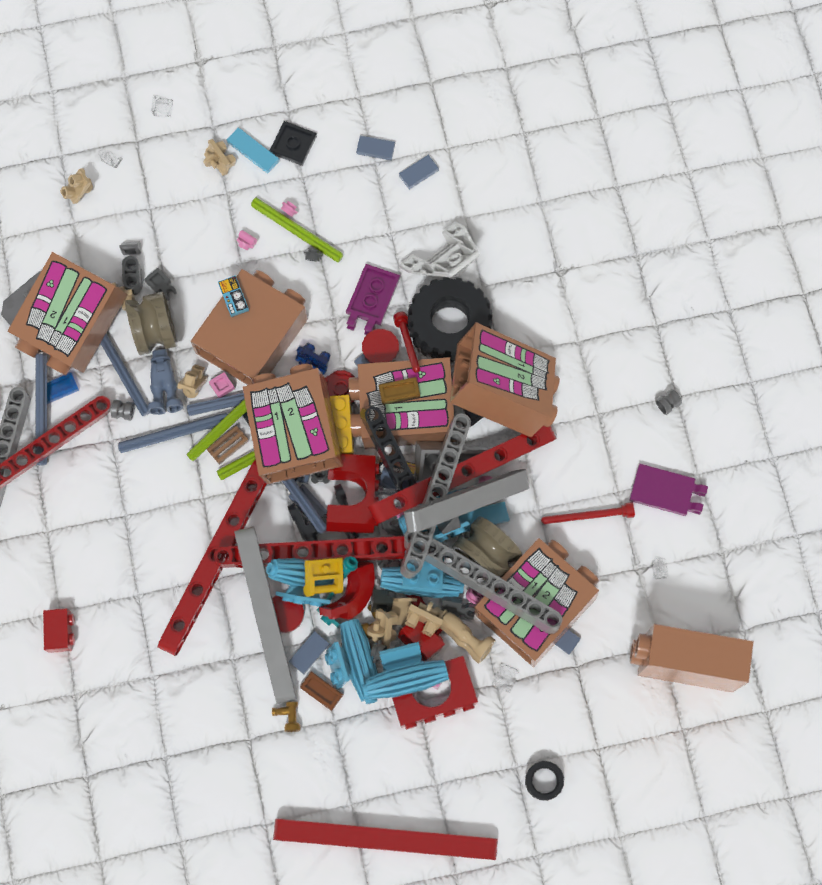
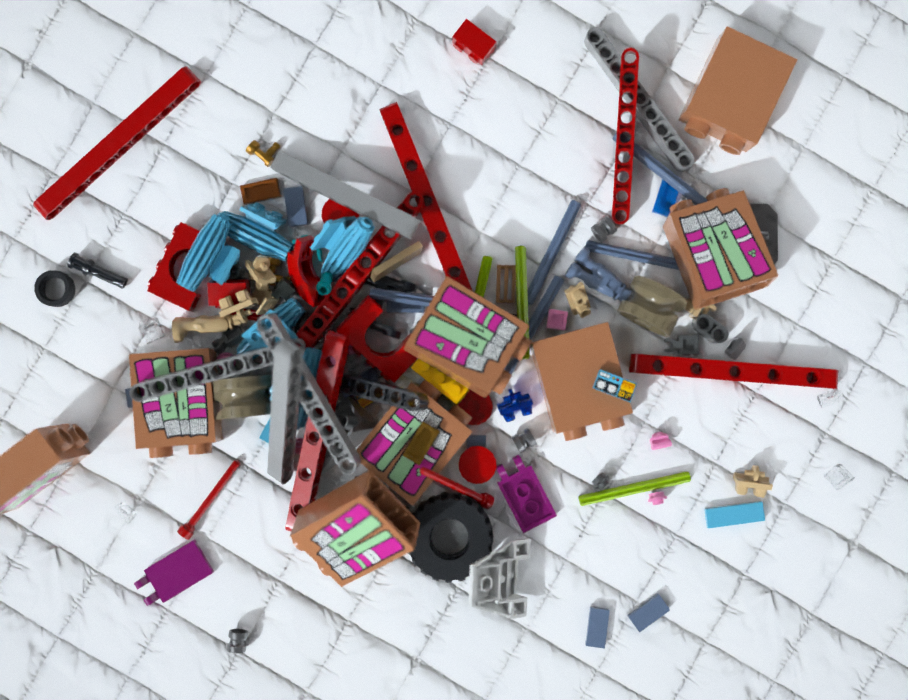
camera: 130 degrees right, 15 degrees up
(77, 186) = (825, 349): tan hips -> none
(156, 243) = (745, 371): none -> red beam
(282, 534) = (396, 261): none -> tan tile
(293, 143) = (712, 551): black tile -> none
(322, 570) = (334, 261): yellow plate -> none
(332, 331) = (520, 443): none -> flat silver wheel
(376, 649) = (246, 253): dark grey plate -> none
(502, 769) = (89, 267): none -> black pin

